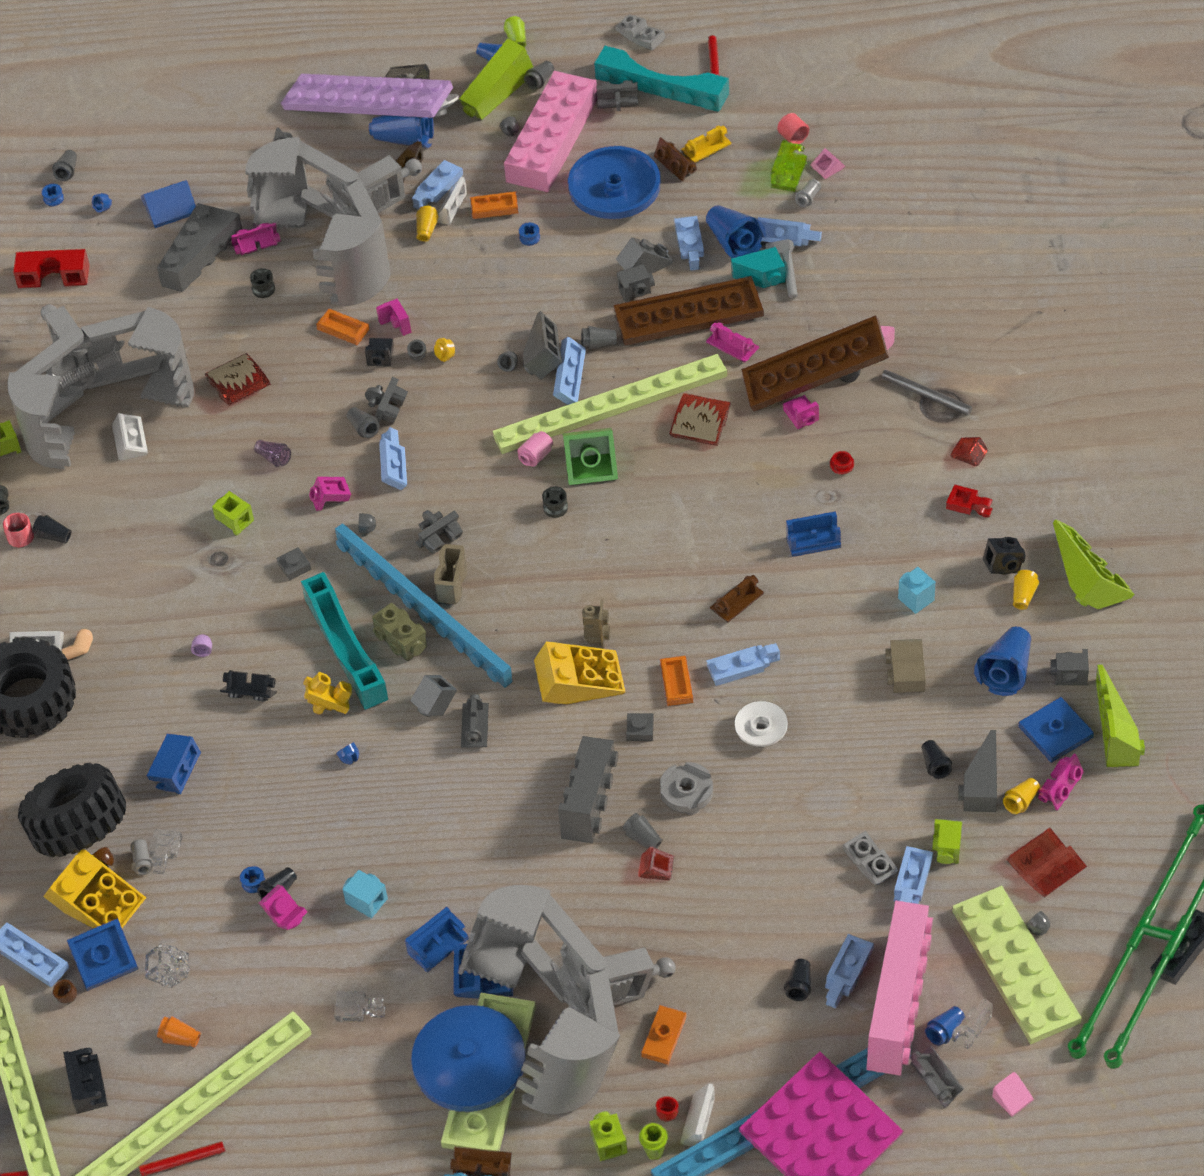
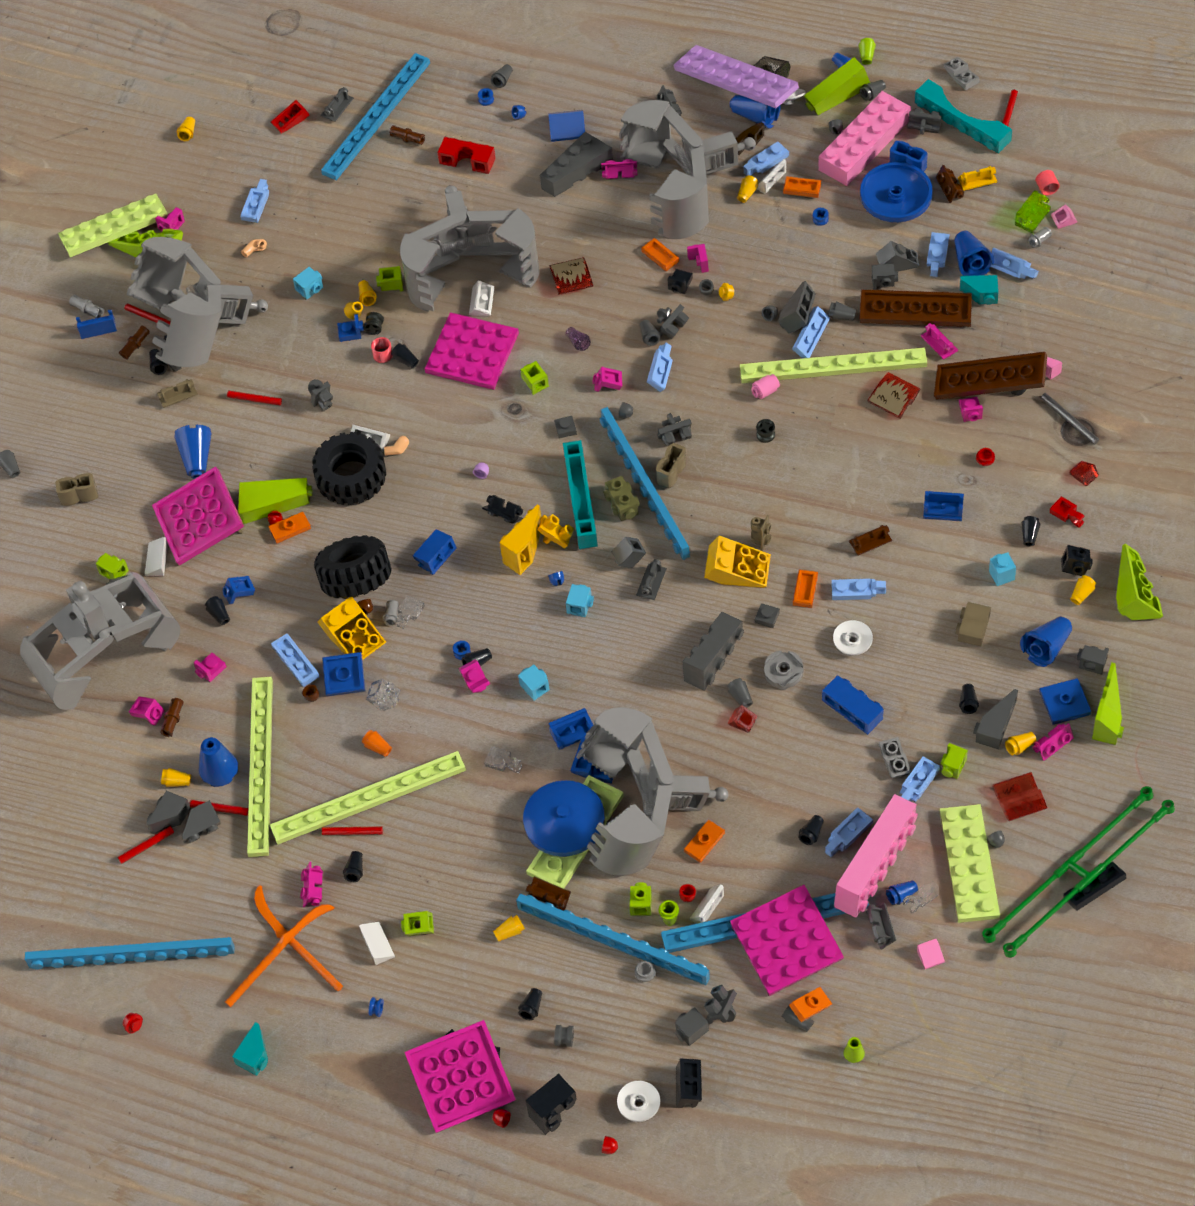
camera: 20 degrees right, 5 degrees up
(85, 1080) = (305, 758): black hinge -> none
(138, 502) = (472, 351): none -> dark pink plate
(262, 283) = (615, 201): pearl dark grey wheel -> none
(287, 721) = (521, 542): none -> yellow slope
(389, 773) = (579, 600): none -> medium azure brick
(590, 456) = (803, 402): bright green slope -> none
(608, 134) = (905, 153): none -> blue brick
(785, 249) = (1004, 278): light grey piece -> none
(792, 806) = (852, 704): none -> blue brick
(931, 535) = (1030, 530): none -> black cone

